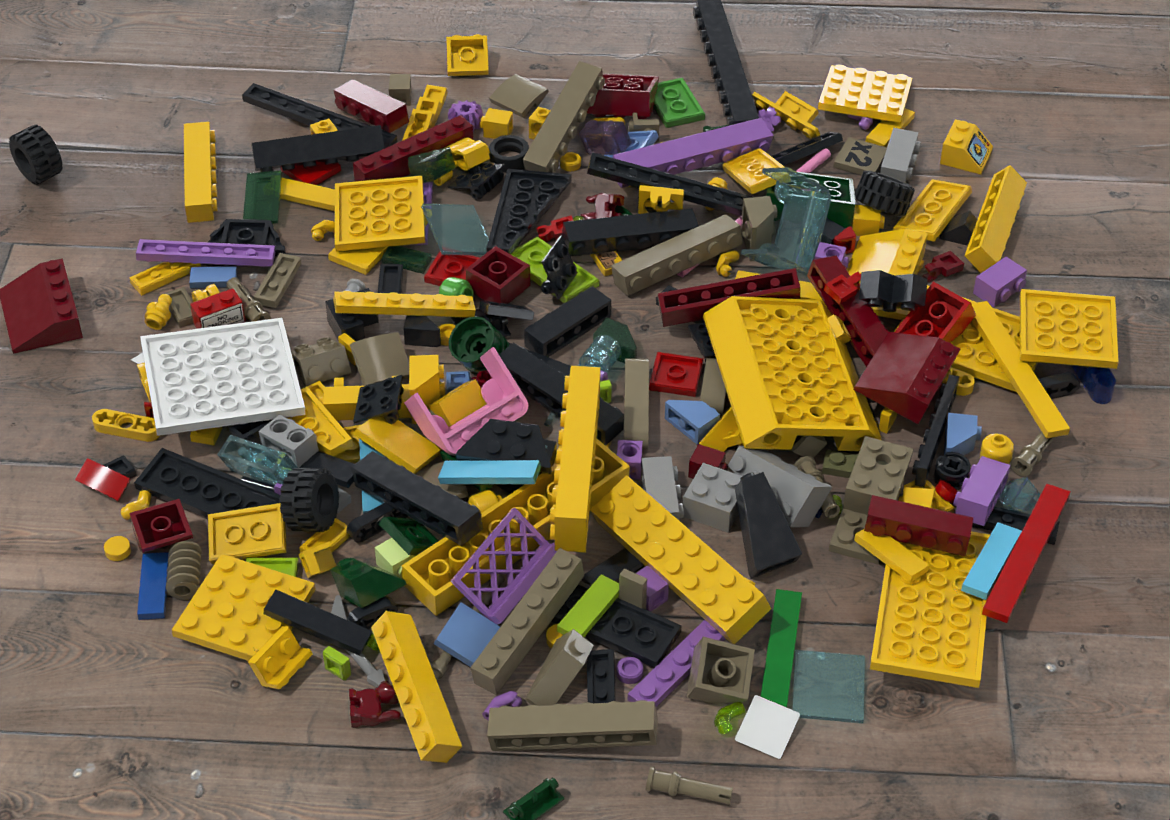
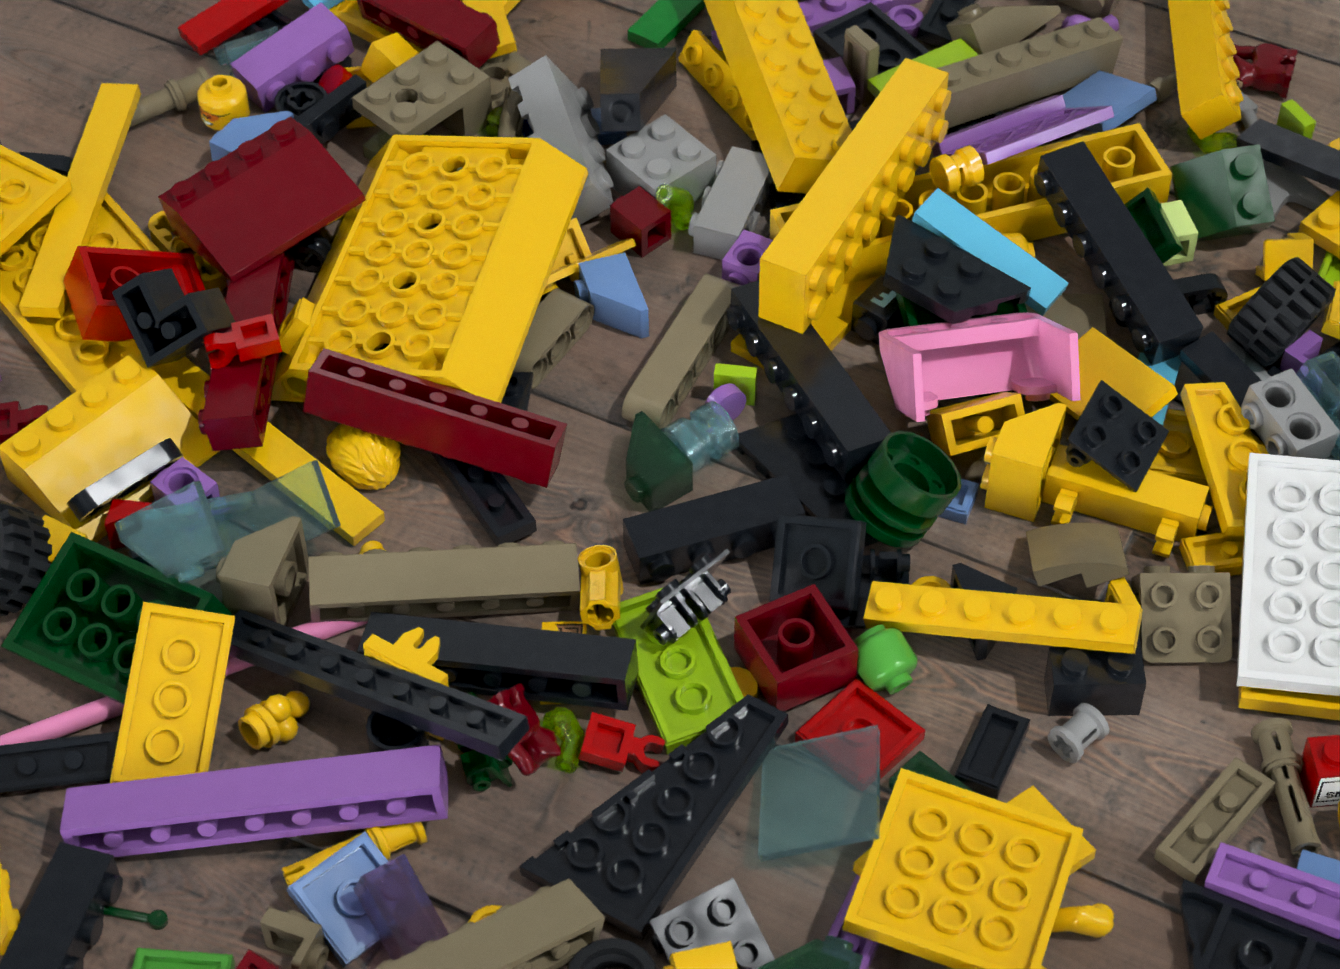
camera: 155 degrees left, 5 degrees up
(532, 505) = (957, 170): none -> yellow wheel
(606, 279) = (600, 586): none -> yellow piece
(676, 374) = (583, 393): red tile -> none
(692, 469) = (679, 202): none -> clear neon green arm
(769, 118) = (25, 867): medium lavender plant -> none
(859, 247) = (124, 480): none -> beam

